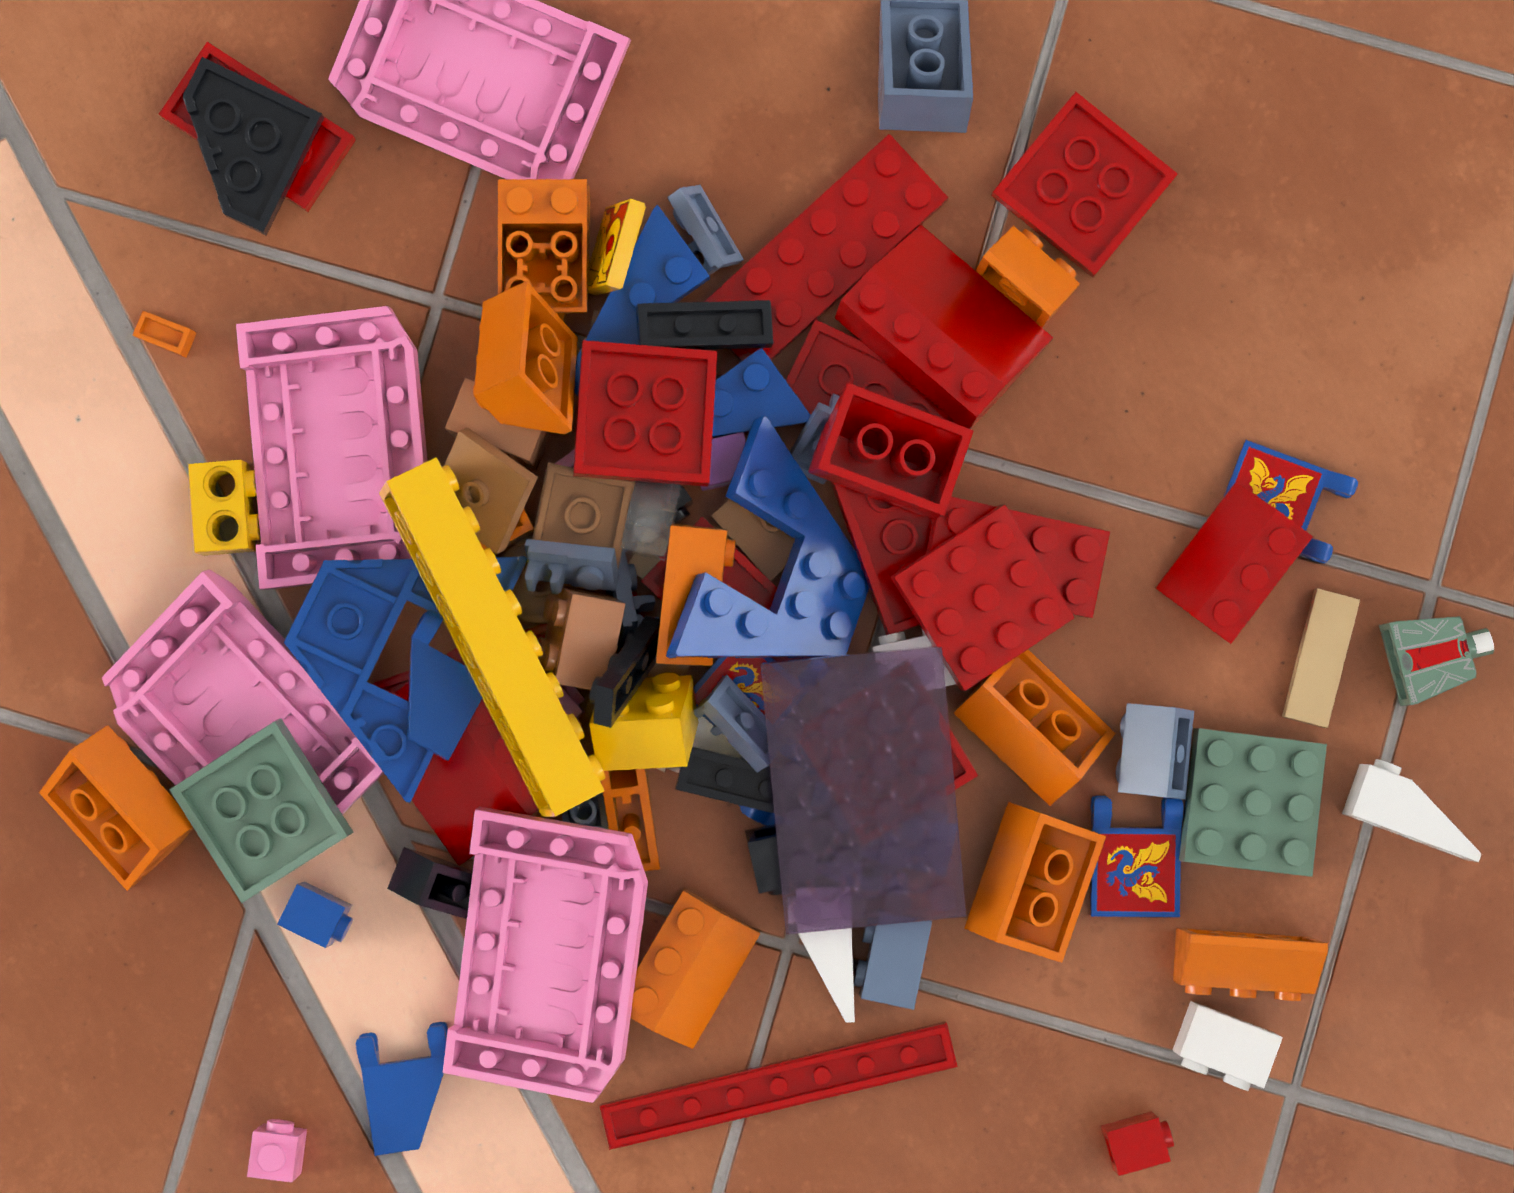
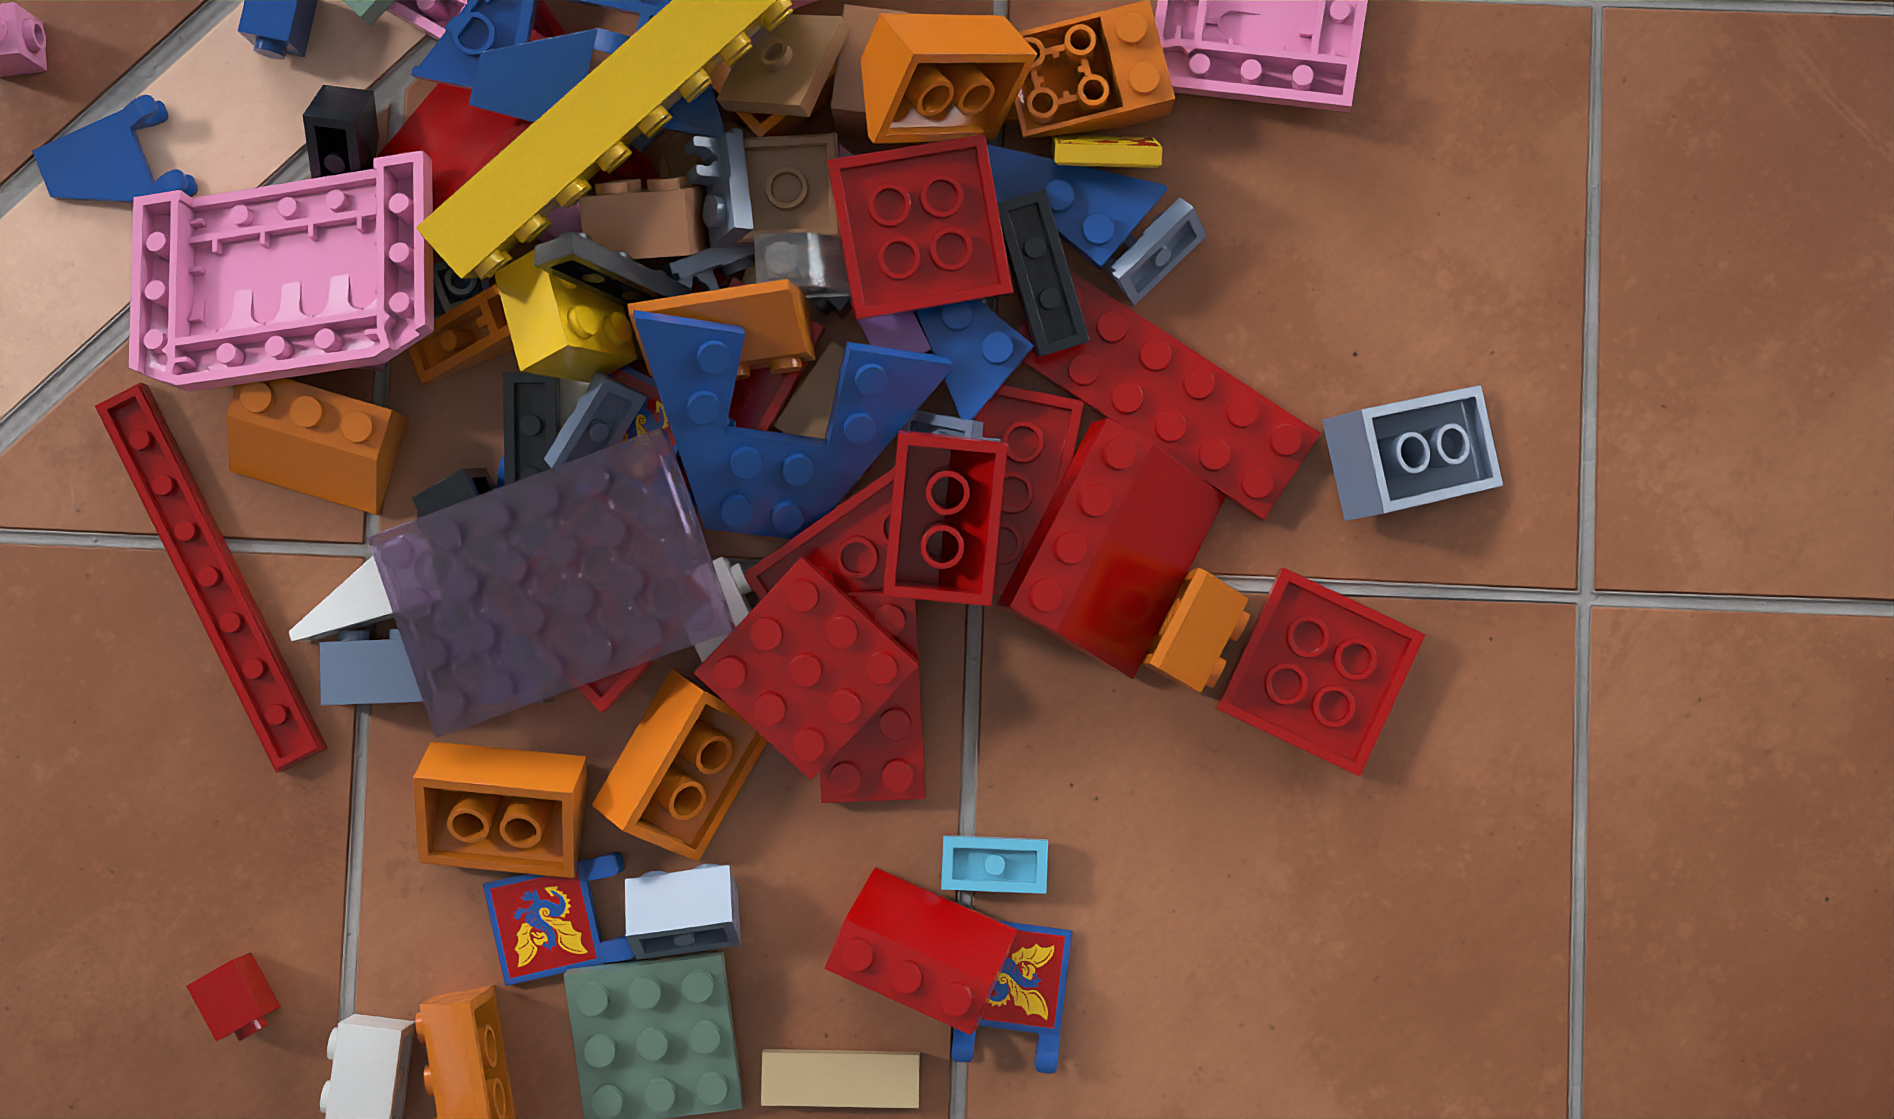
camera: 85 degrees right, 0 degrees up
(1177, 488) = (994, 864): none -> medium azure plate

